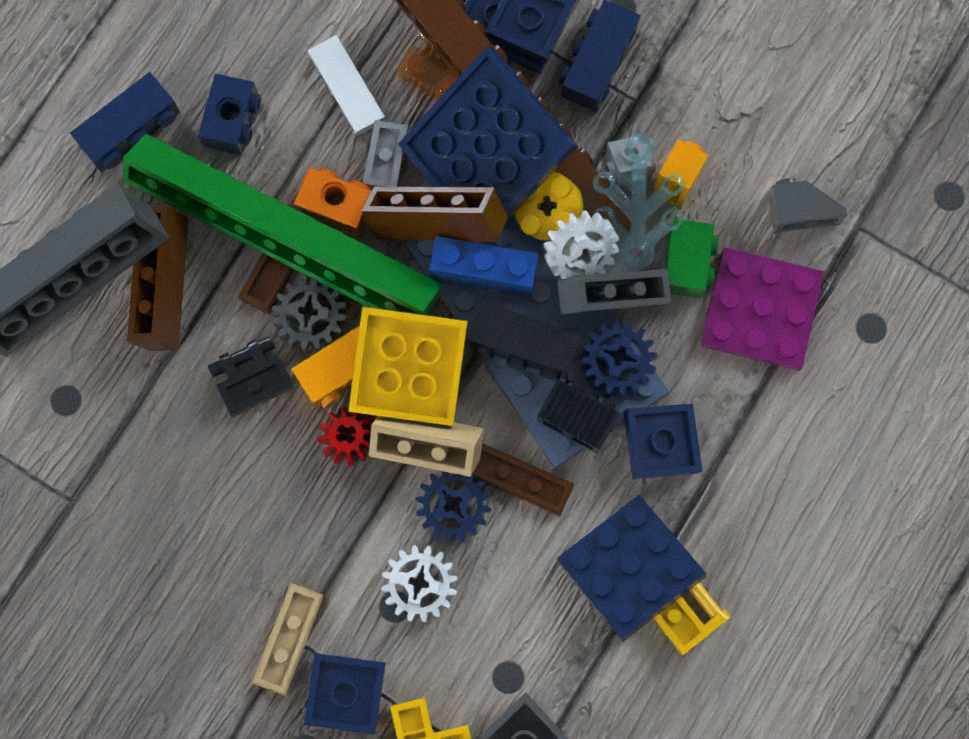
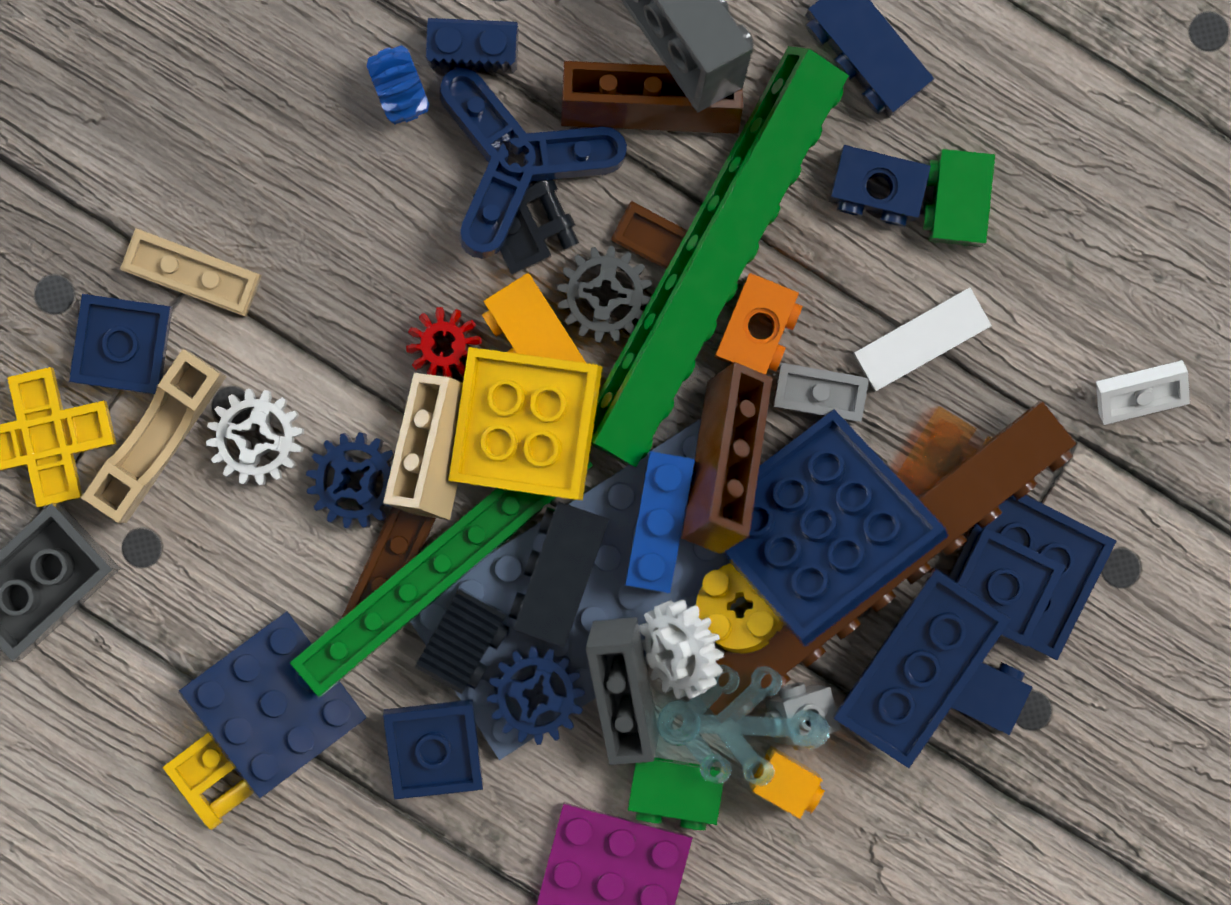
camera: 90 degrees right, 10 degrees up
(113, 416) = (472, 44): none -> dark blue brick
(142, 472) = (397, 84): none -> blue gear
(223, 387) = (504, 185): none -> dark blue piece
(241, 55) = (960, 198): none -> green brick
(418, 662) = (148, 449): none -> tan arch
(537, 454) = (416, 586): none -> green plate
(591, 72) = (921, 668): none -> dark blue plate

